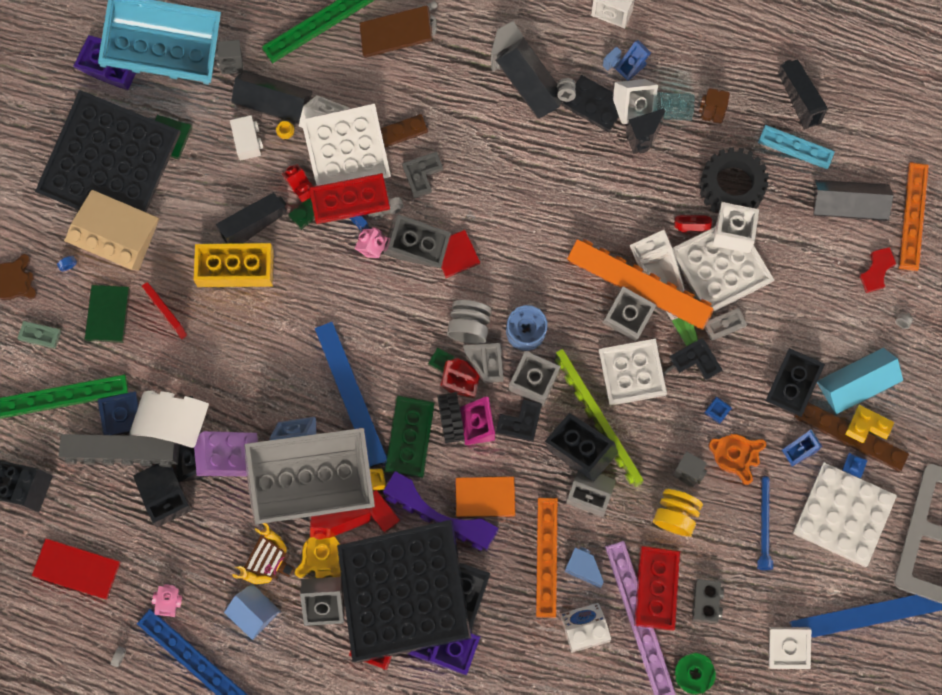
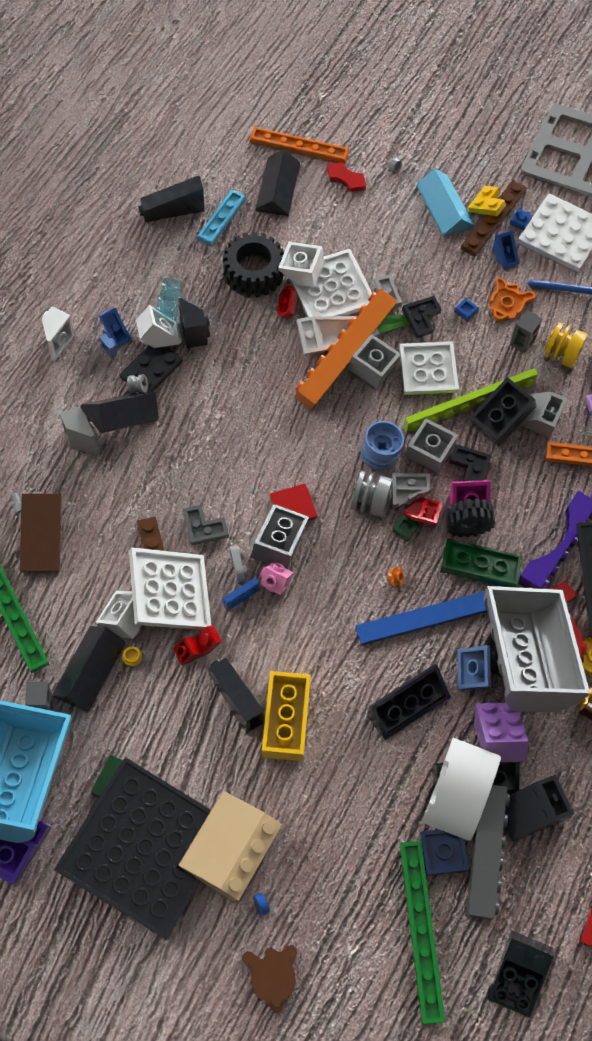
camera: 90 degrees left, 10 degrees down
(39, 335) = (344, 941): sand green plate -> none
(107, 313) = (324, 862): dark green tile -> none
(164, 310) = (333, 791): red tile -> none
(245, 137) = (136, 695): white brick -> none
(257, 375) = (408, 702): none -> black slope
(303, 214) = (231, 643): dark green plate -> none
(349, 198) = (227, 591): red tile -> none
(385, 354) = (395, 577): none -> orange plate
(485, 497) = (542, 504): orange tile -> none
(714, 105) = (176, 263): reddish brown brick -> none
(795, 382) = (447, 245): black slope -> none

